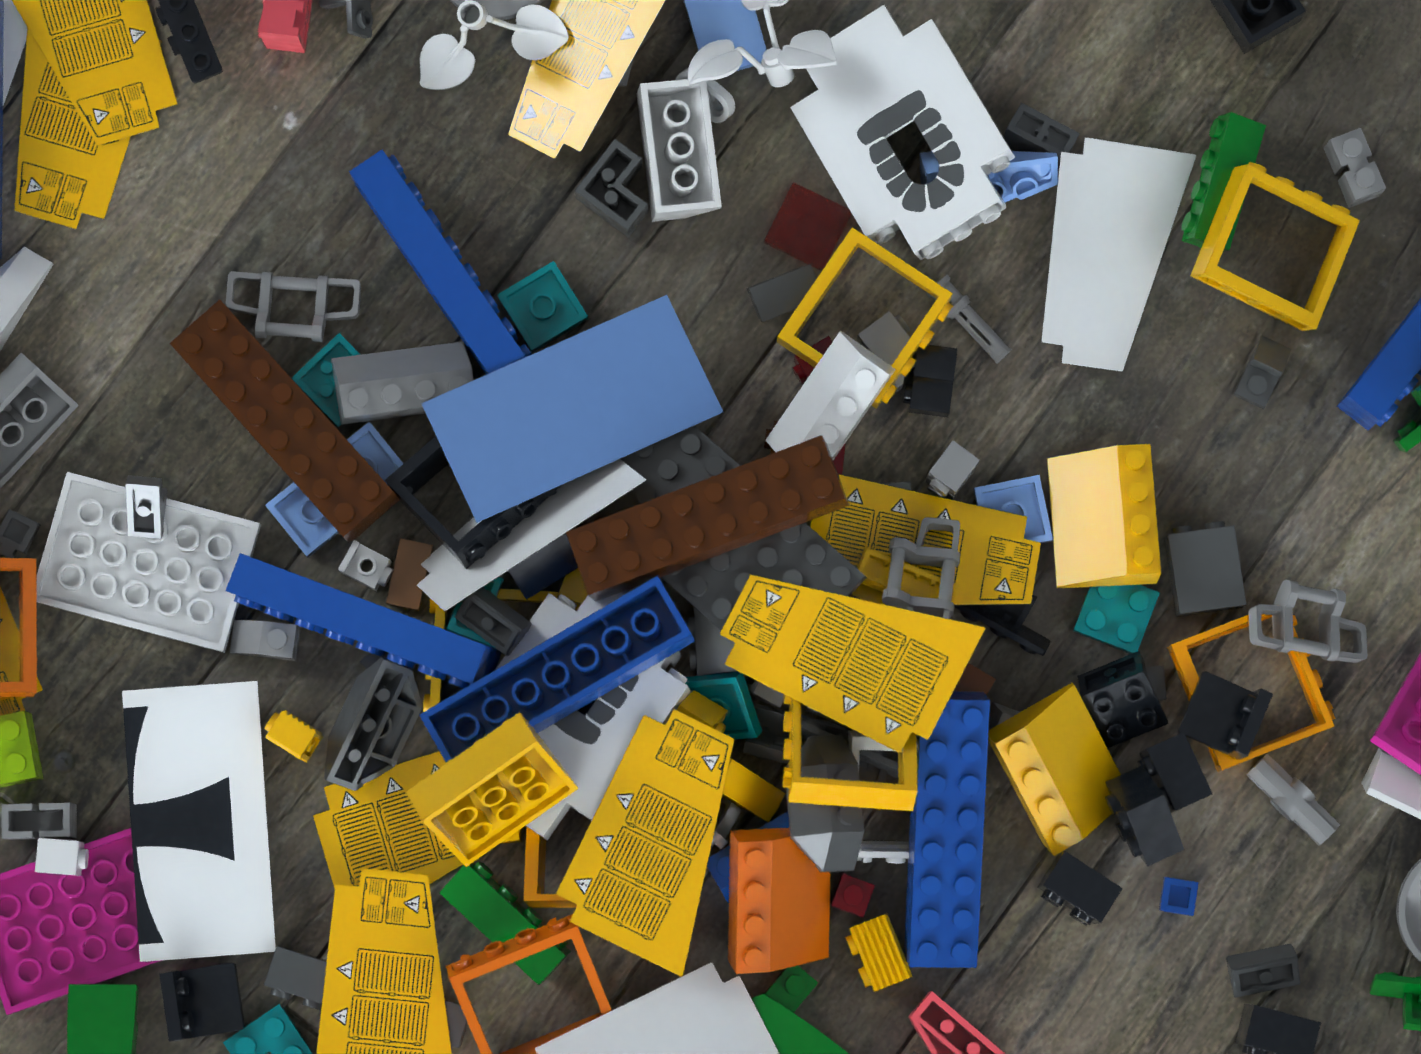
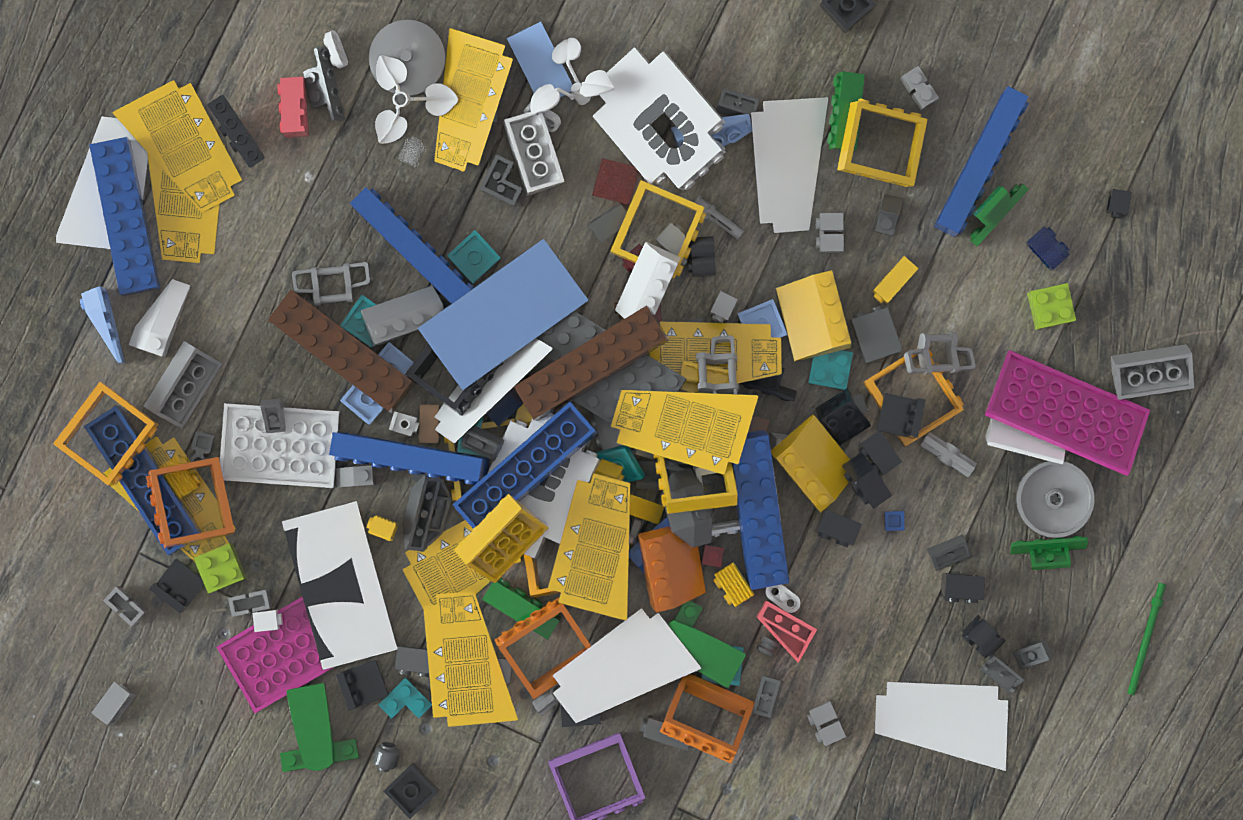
camera: 10 degrees left, 5 degrees up
(473, 111) = (412, 152): none -> clear brick
(962, 989) = (782, 598): none -> white plate
(1163, 366) = (830, 242): none -> light grey piece
(1253, 483) = (894, 280): none -> yellow brick

